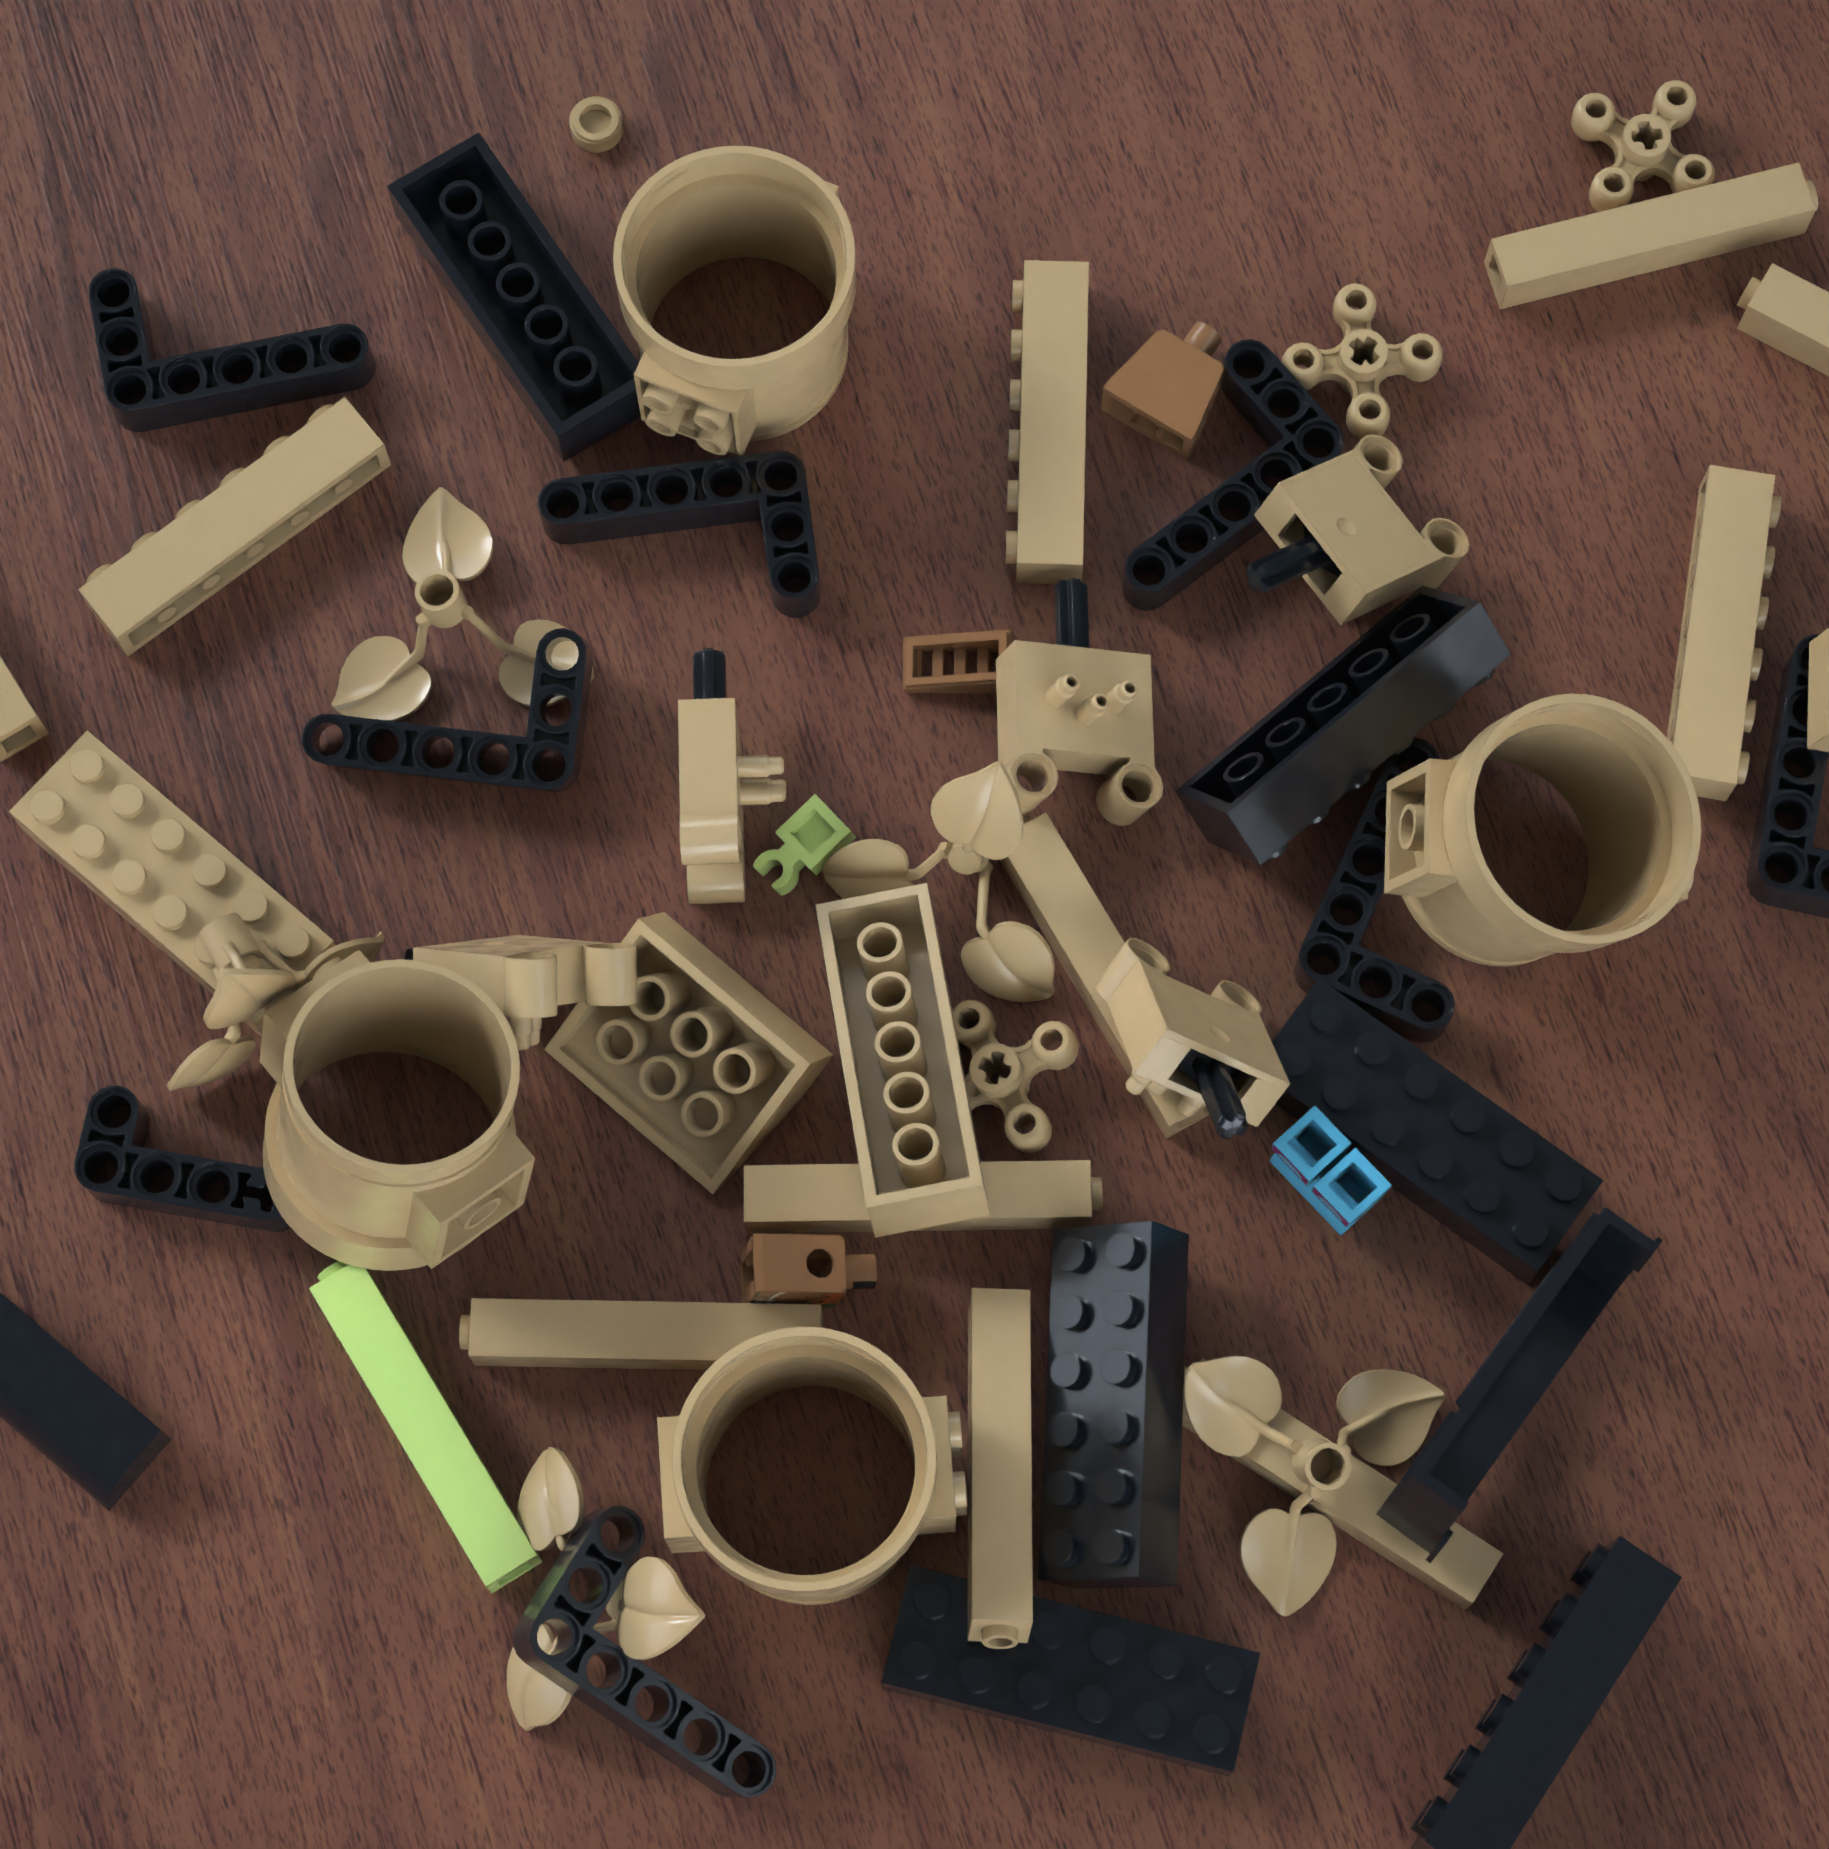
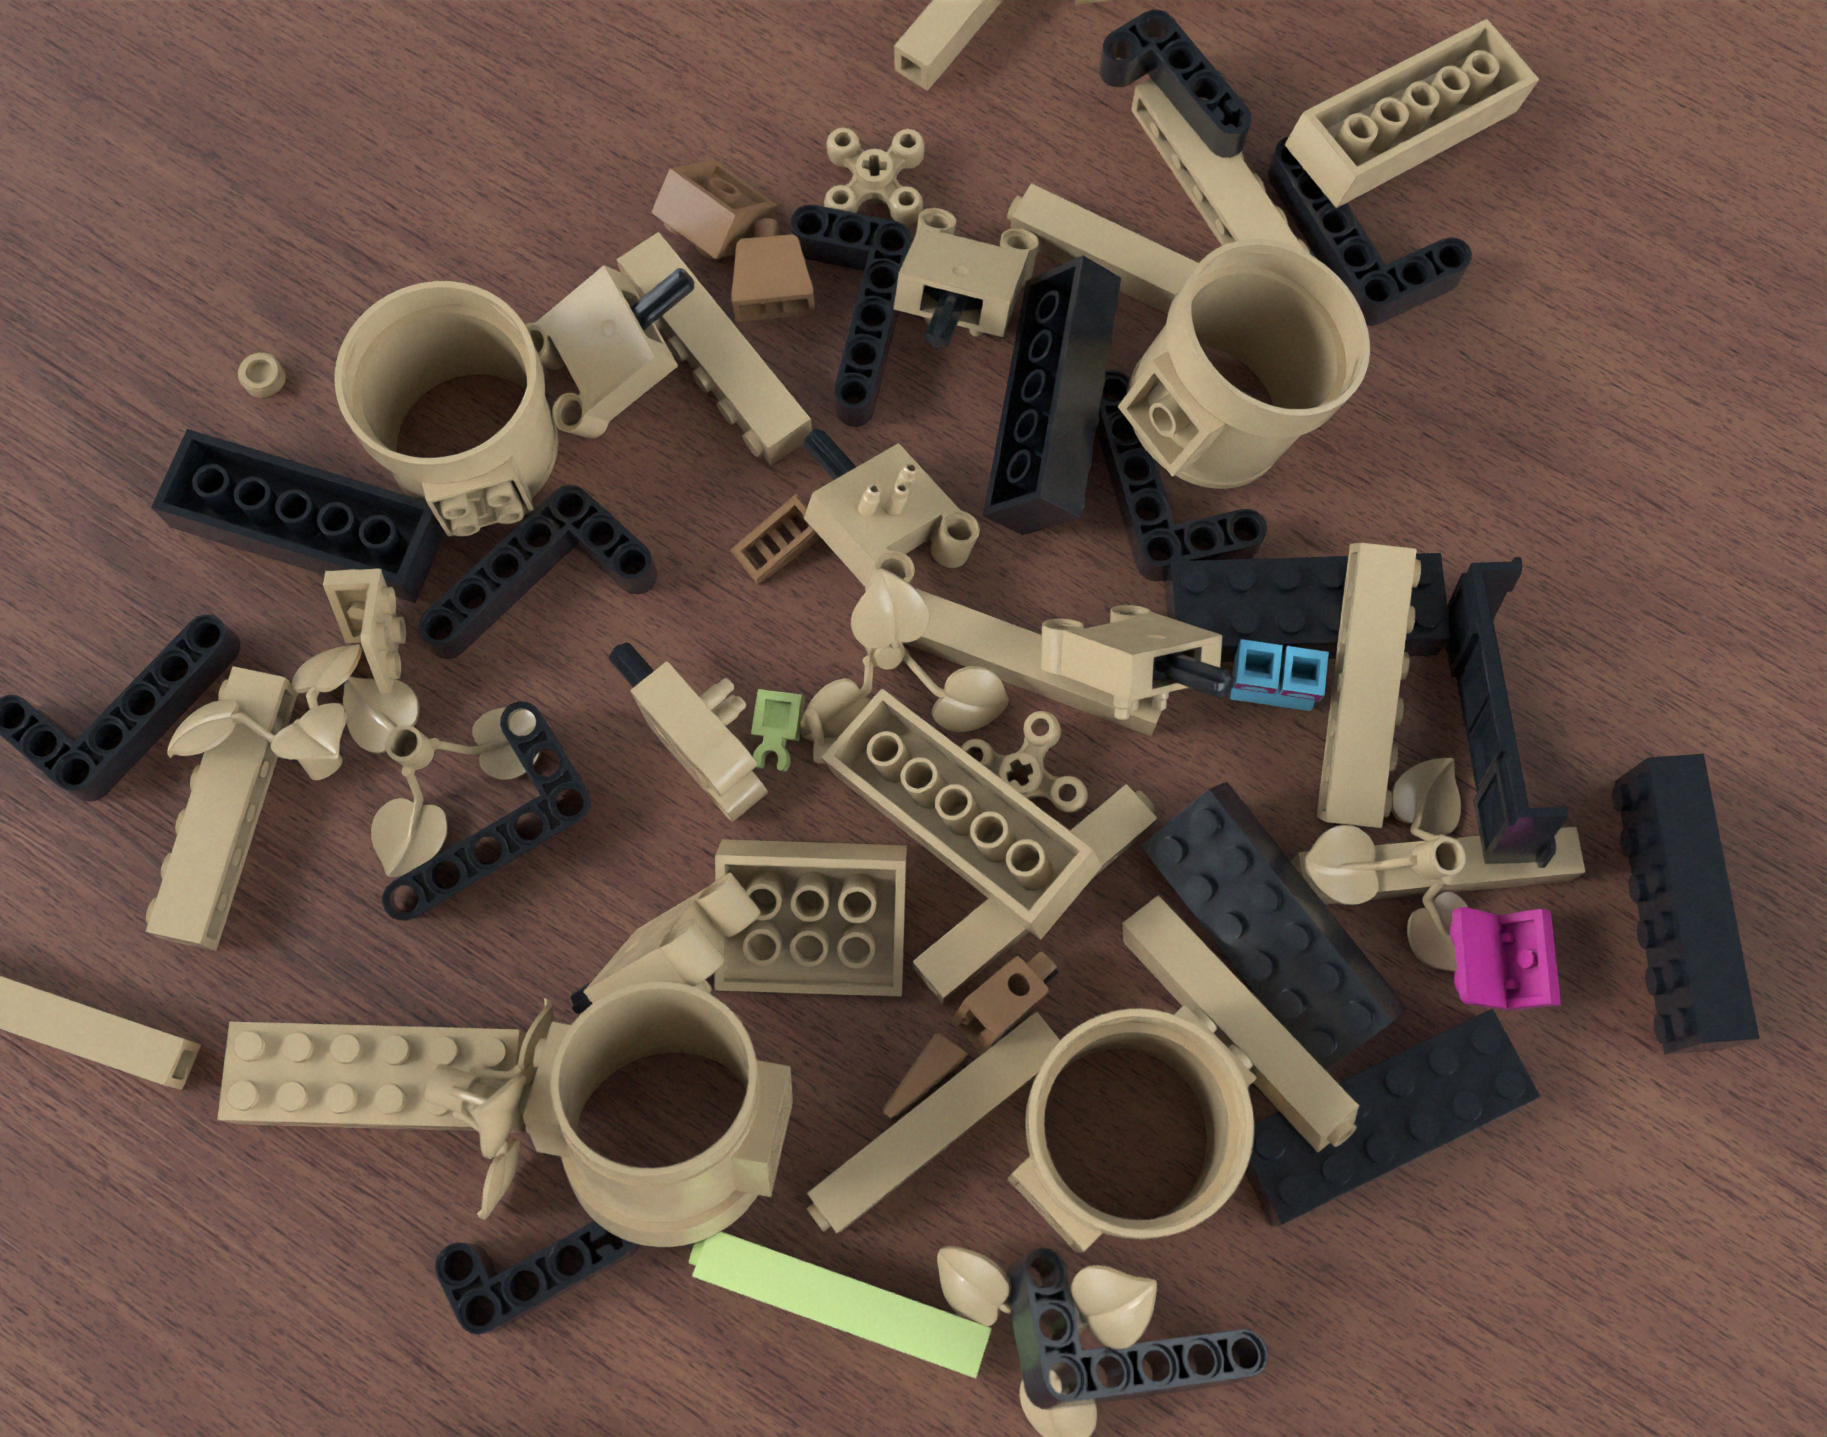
camera: 40 degrees left, 0 degrees up
(356, 520) = (310, 740): none -> tan plant
(504, 447) = (369, 617): none -> tan bracket
(675, 1280) = (931, 1067): none -> medium nougat slope
(836, 883) = (821, 743): none -> tan hand
(939, 341) = (608, 346): none -> tan piece
(1169, 273) = (710, 207): none -> medium nougat slope
(1317, 1619) = (1505, 959): none -> dark pink bracket
(1405, 1248) = (1367, 684): none -> tan brick
(1528, 598) = (1069, 231): none -> tan brick
(1751, 501) = (1220, 120): none -> black beam

